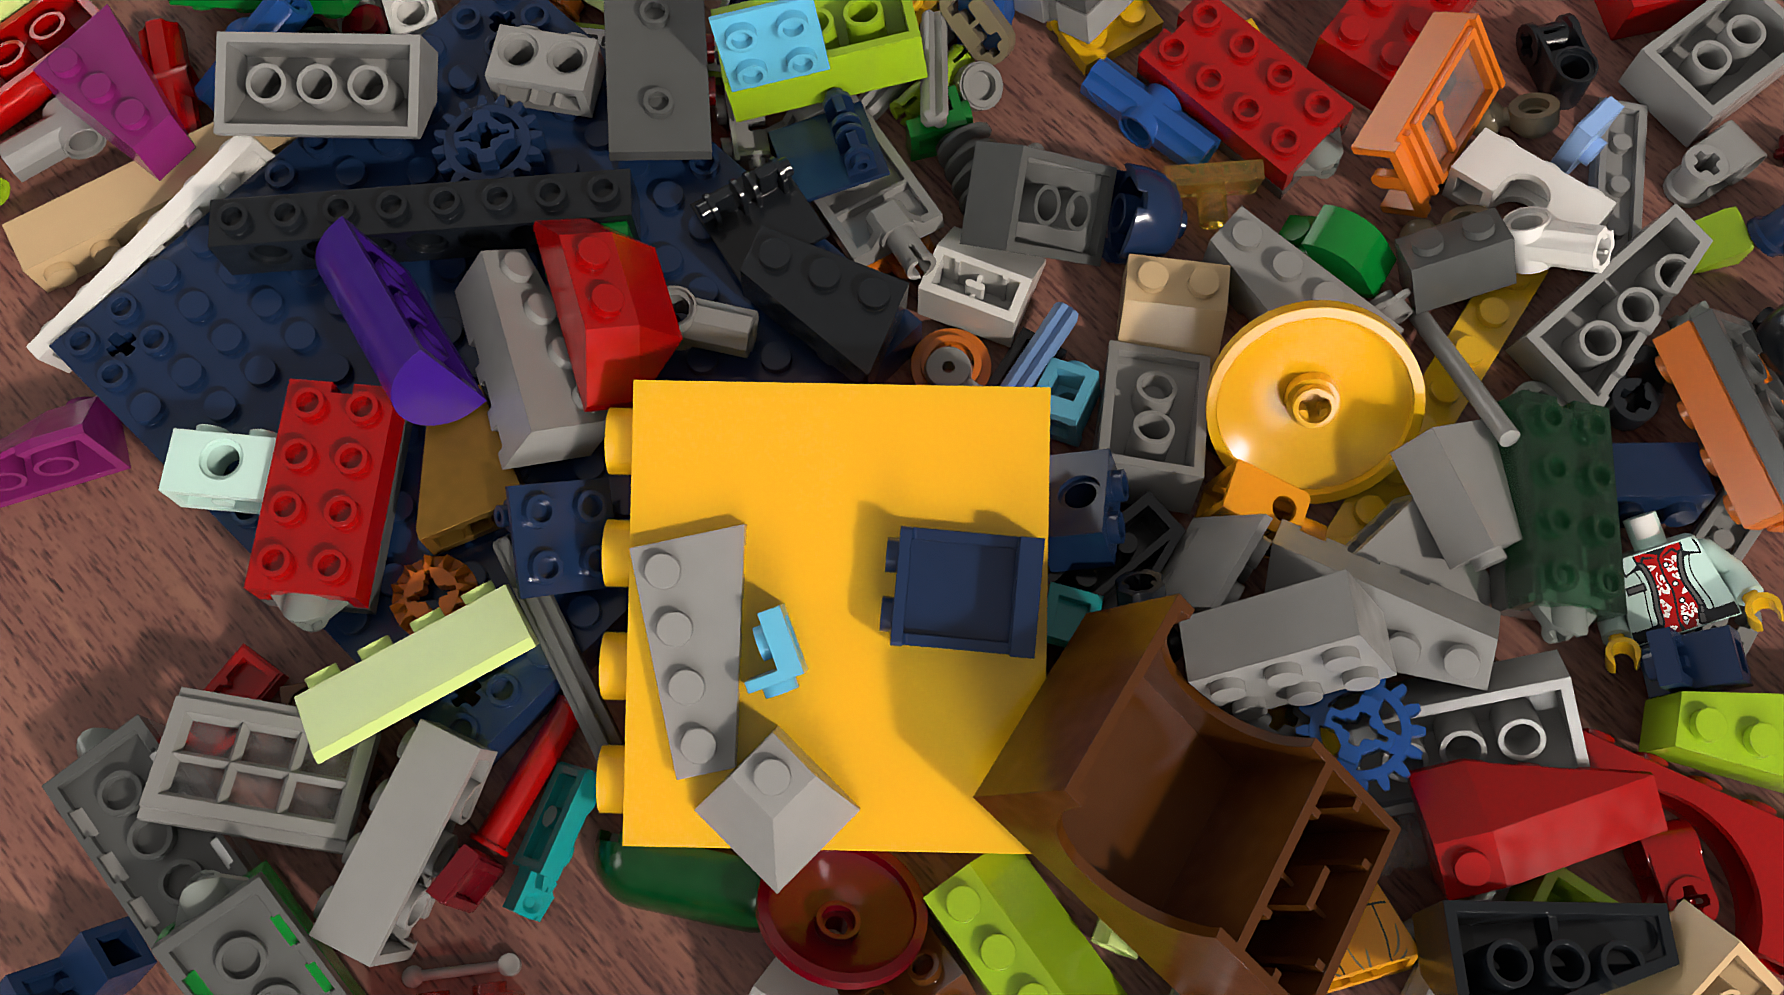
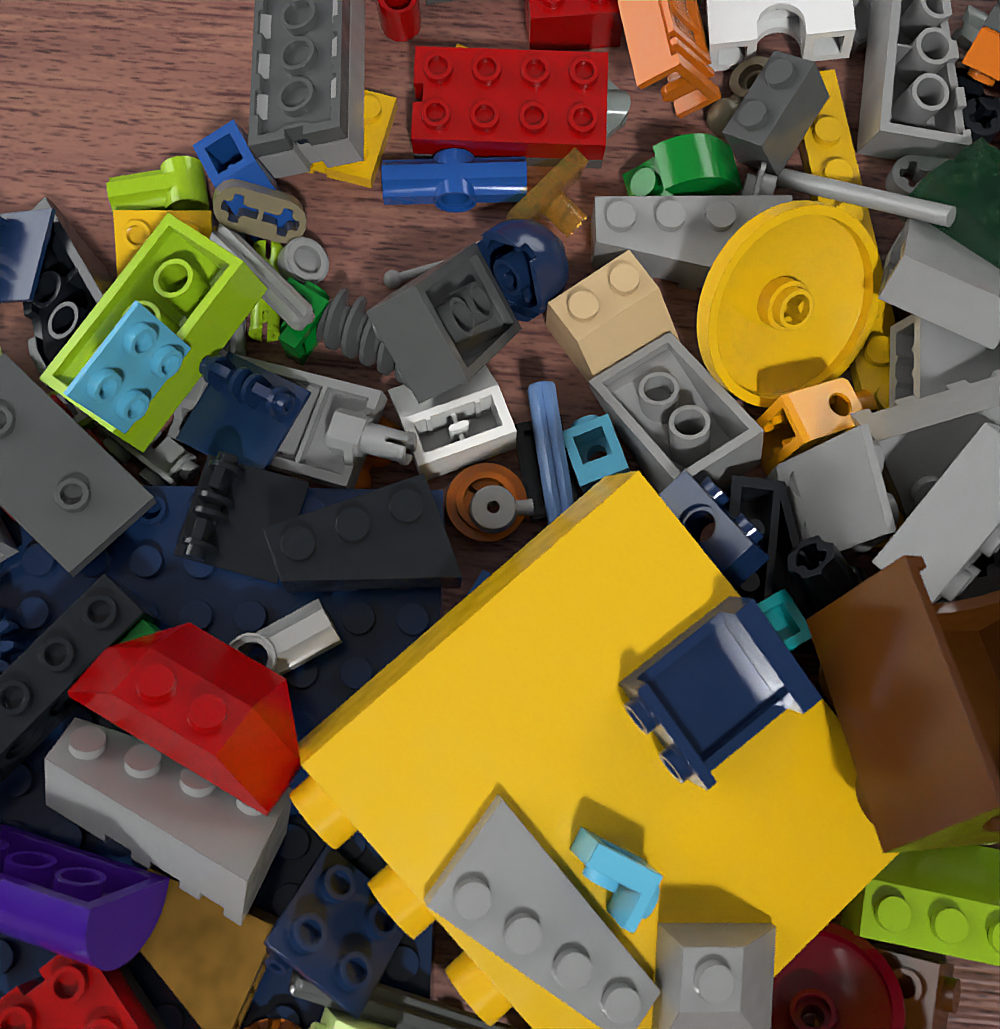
camera: 45 degrees left, 5 degrees up
(1557, 243) = (841, 41): white piece -> none

